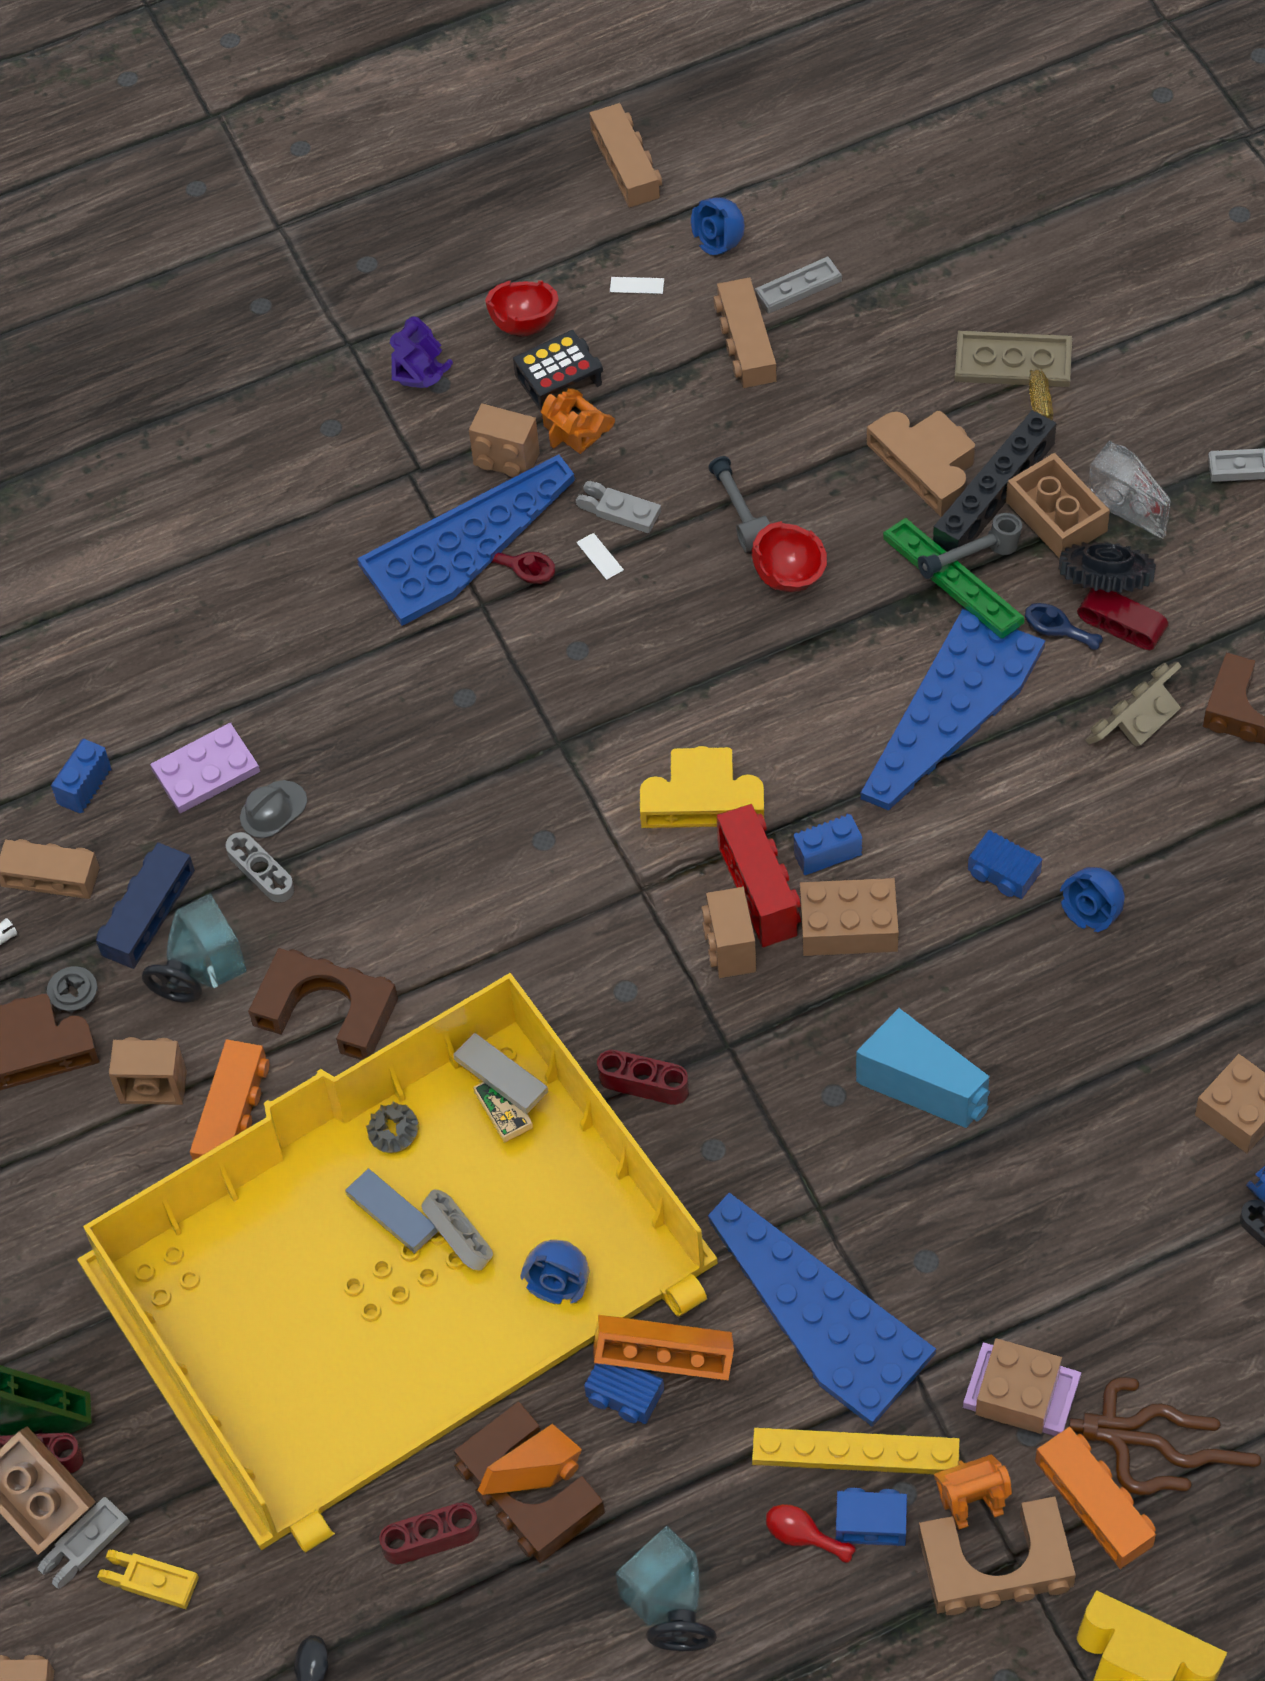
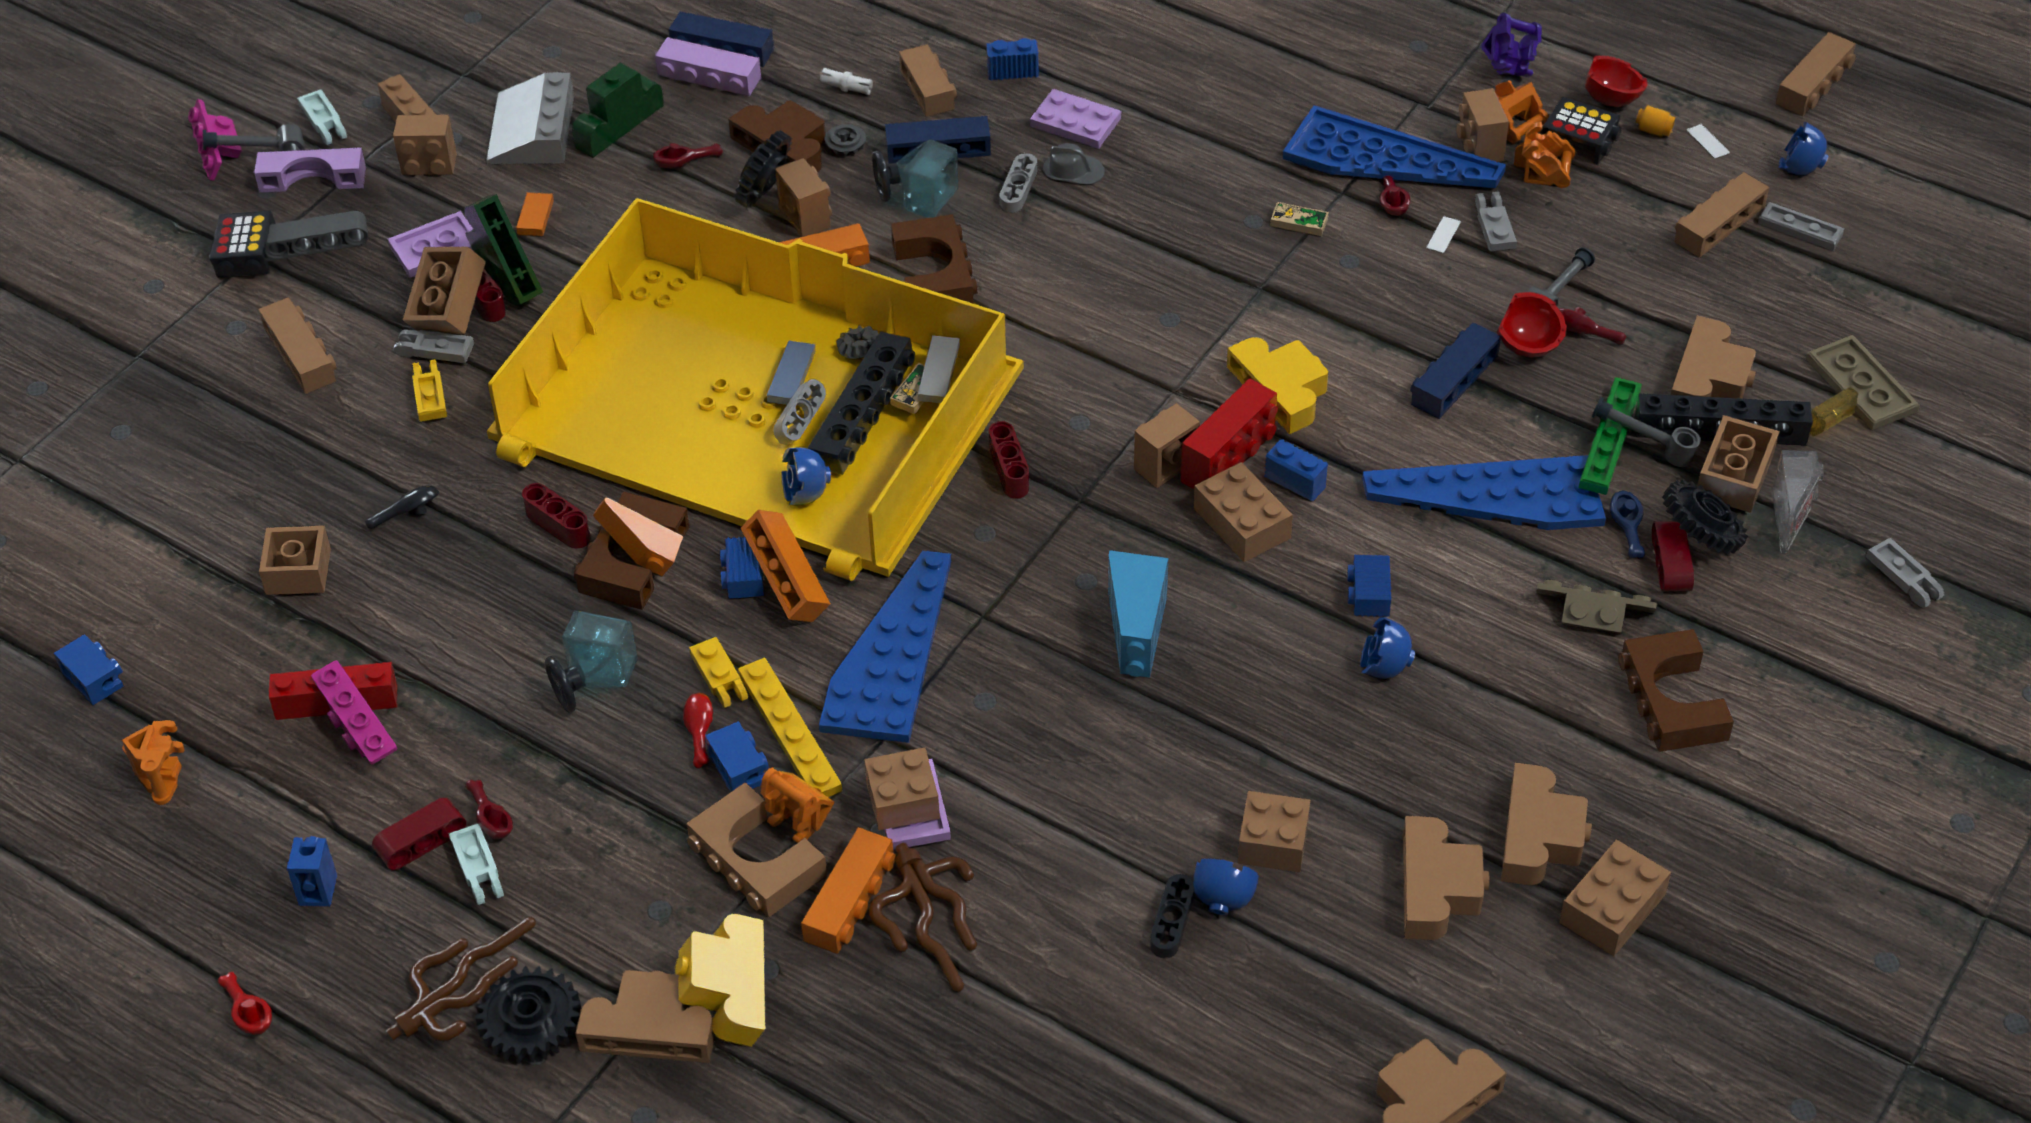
camera: 55 degrees right, 10 degrees down
(89, 1086) = (759, 171): none -> black gear
(439, 1105) = (863, 401): none -> black brick
(488, 390) = (1521, 102): none -> orange piece
(495, 658) = (1299, 219): none -> tile
(589, 308) = (1655, 121): none -> light orange brick
(741, 1480) = (717, 670): none -> yellow hinge
(789, 647) = (1455, 370): none -> dark blue brick
(808, 515) = (1579, 323): none -> dark red piece

